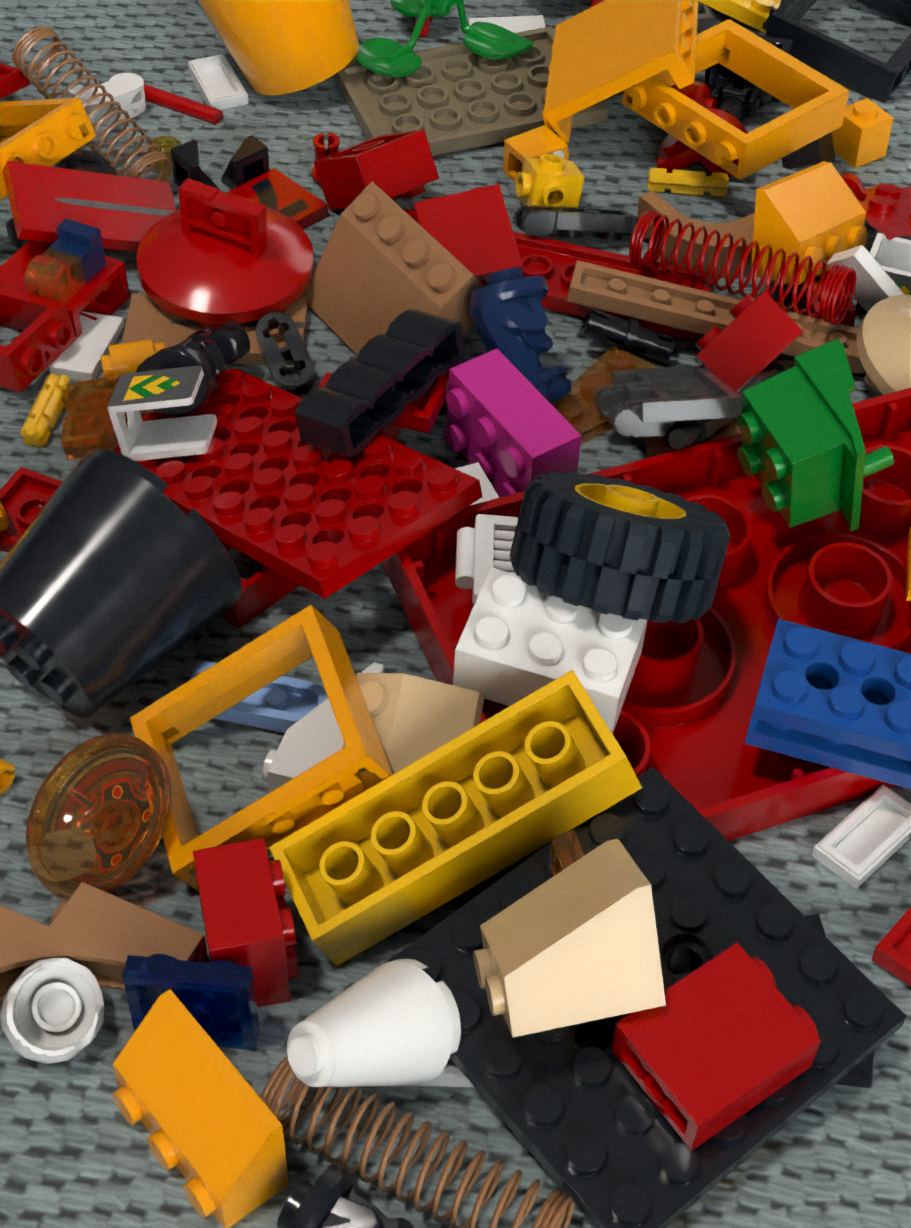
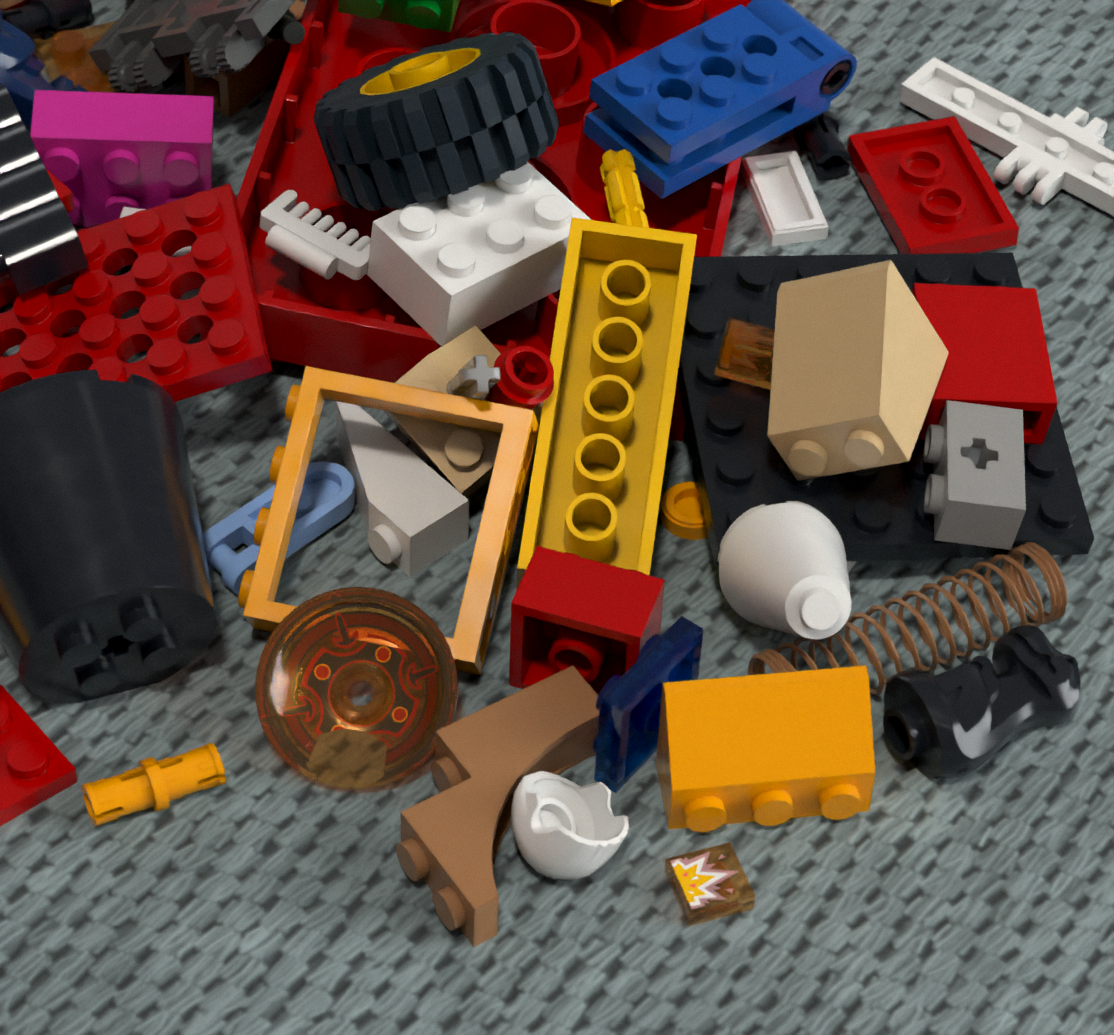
camera: 60 degrees left, 0 degrees up
(69, 1147) = (709, 884): none -> clear orange tile
(372, 705) = (474, 379): none -> light grey axle
(405, 724) = (524, 378): none -> red cone
(570, 1137) = (976, 474): none -> light grey brick
(708, 715) = (623, 189): none -> yellow axle

